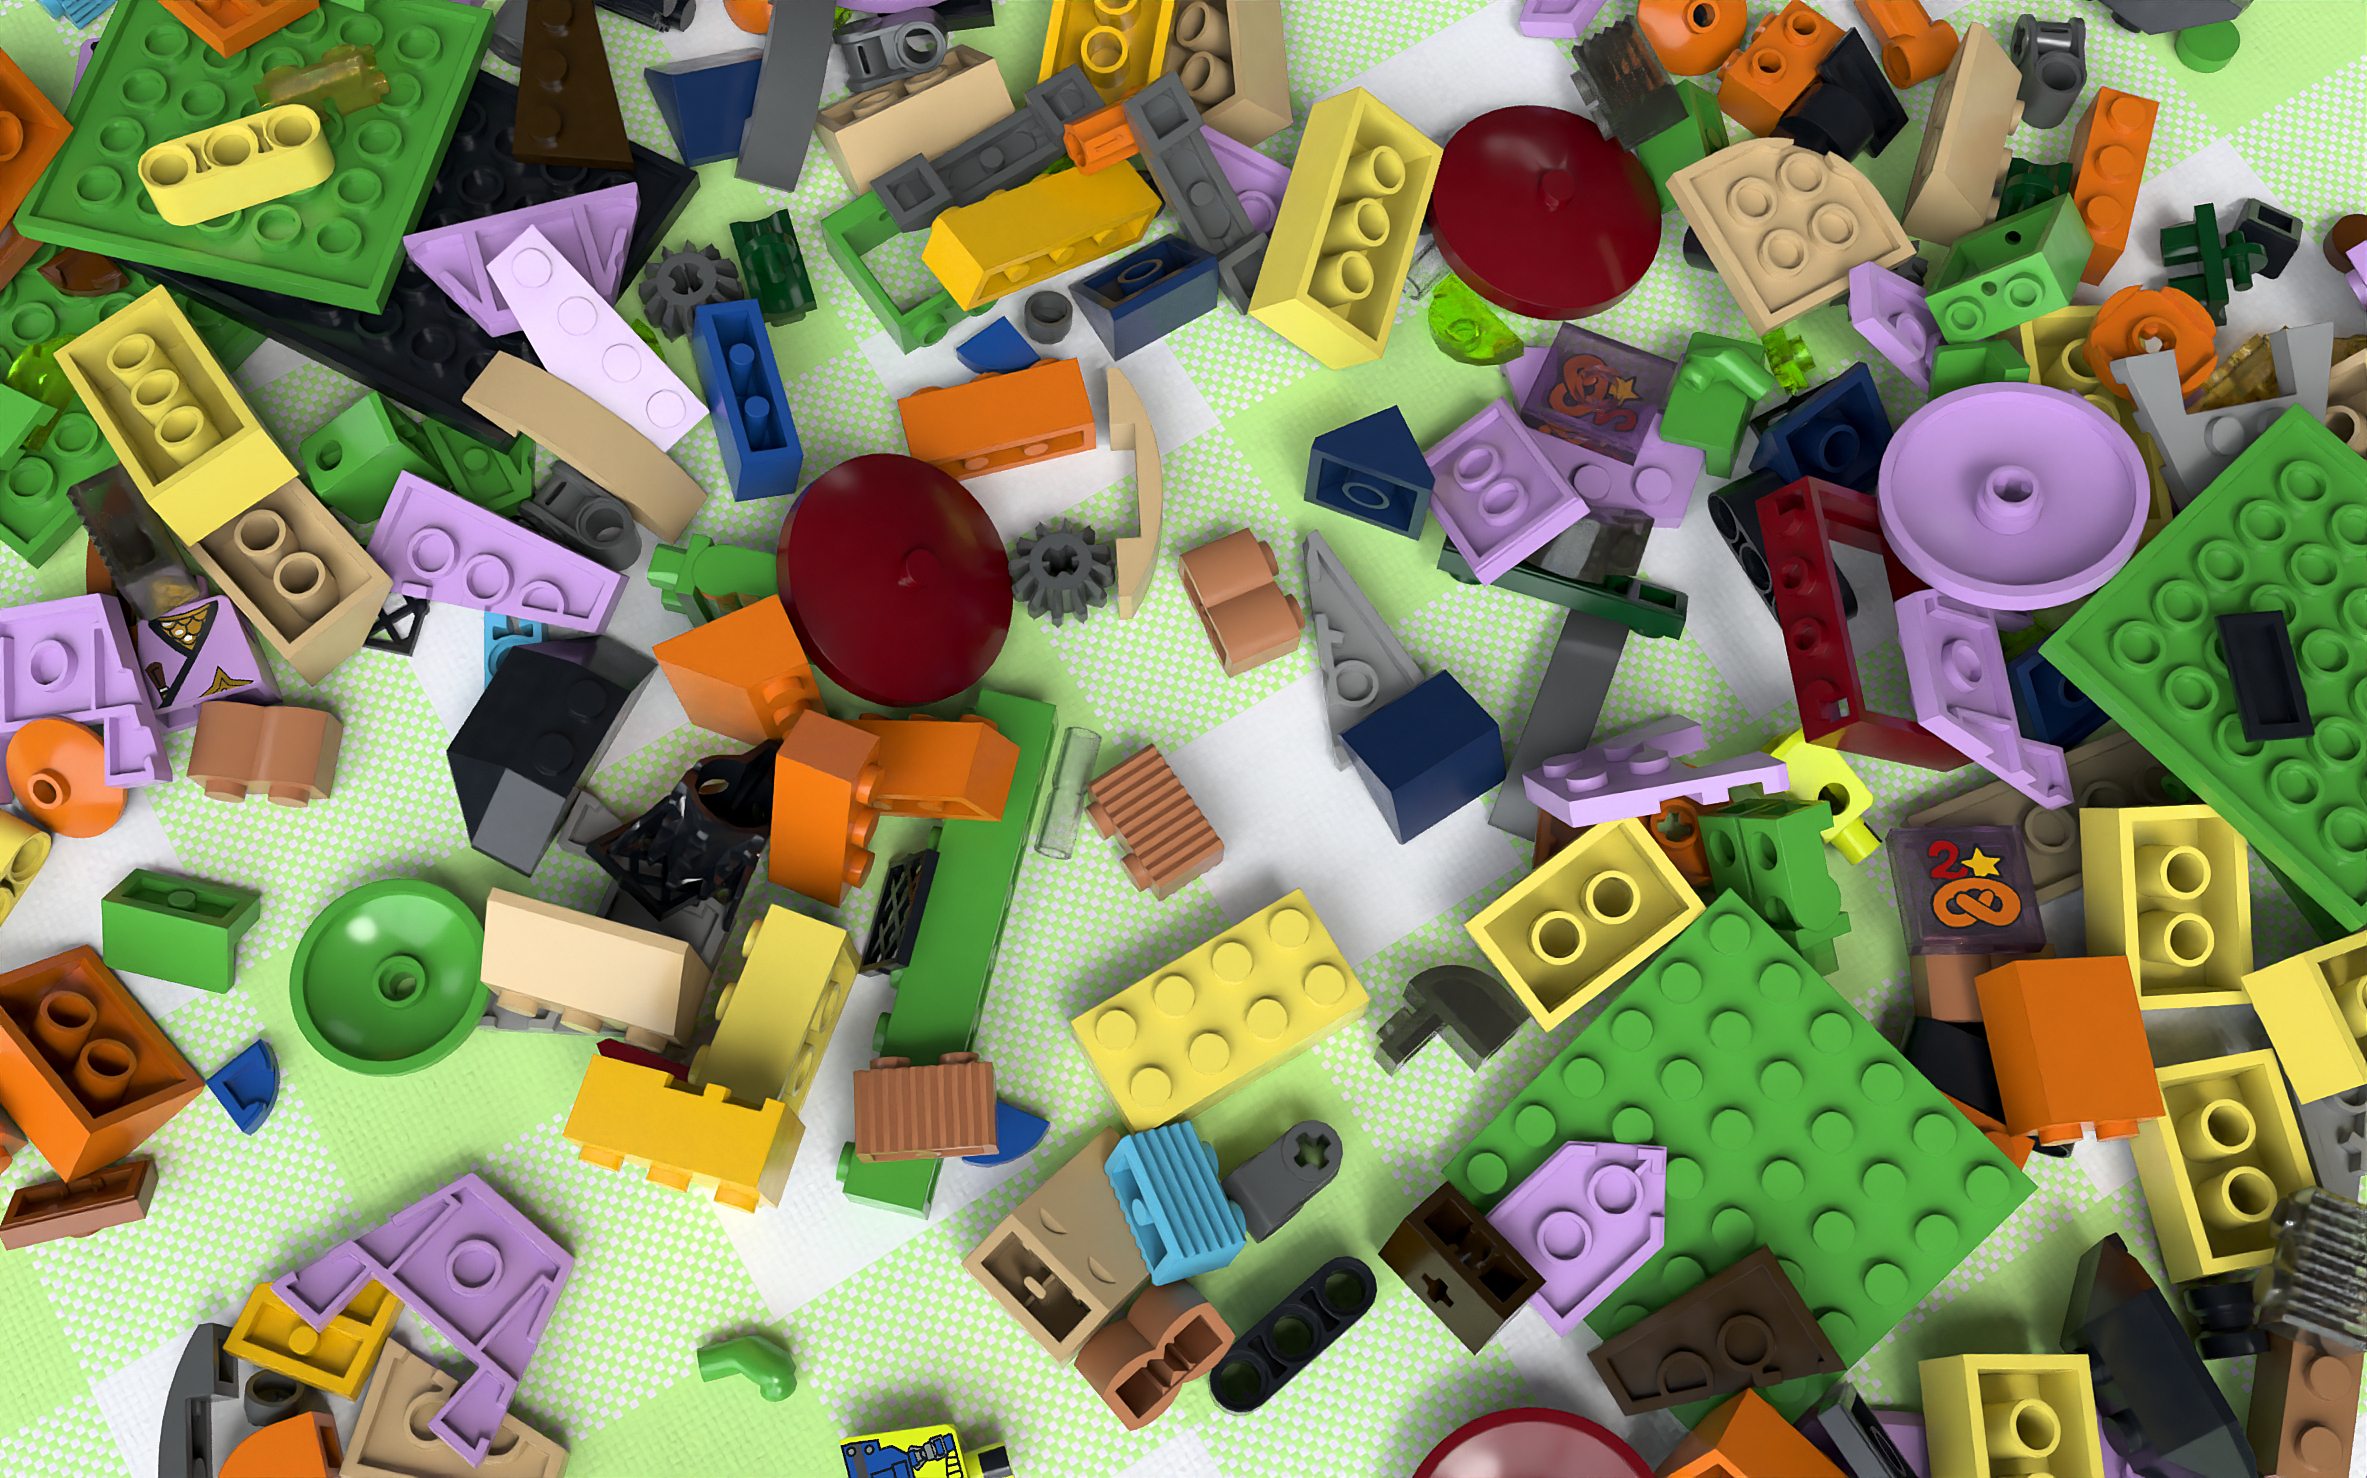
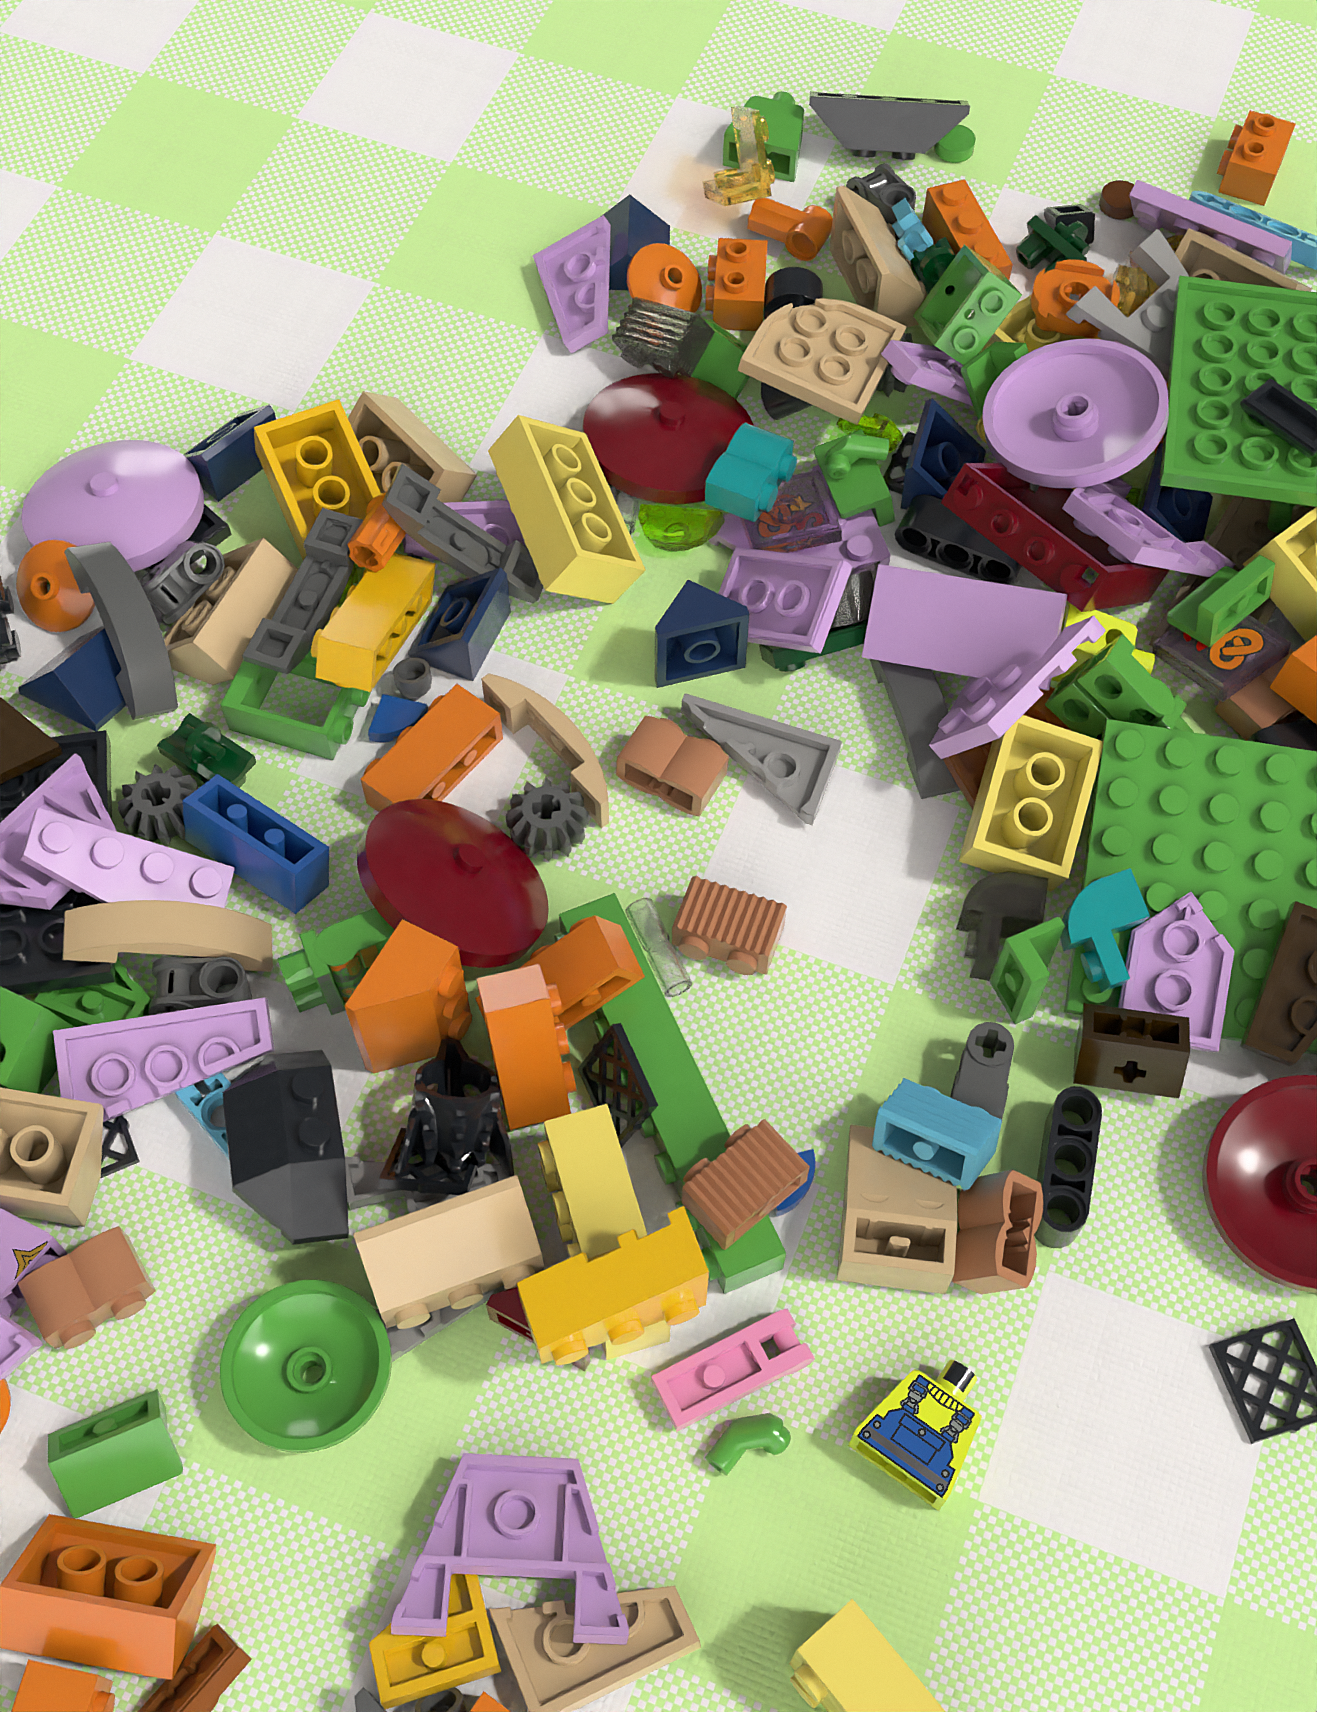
camera: 35 degrees left, 10 degrees down
(248, 1086) = (249, 1522): blue tile -> none
(787, 1283) = (730, 1370): none -> bright pink plate
(1220, 1016) = (865, 1012): light yellow brick -> none
(1422, 1080) = (1023, 968): none -> bright green panel
(1426, 754) = (858, 776): dark blue slope -> none
(1534, 1096) = (1093, 918): none -> teal brick
(1585, 318) = (750, 472): none -> teal brick
(1668, 658) = (959, 623): none -> lavender tile
(1855, 70) = (780, 254): black tile -> none
(2010, 838) = (1223, 601): none -> bright green panel
(2040, 128) = (910, 230): none -> medium azure plate

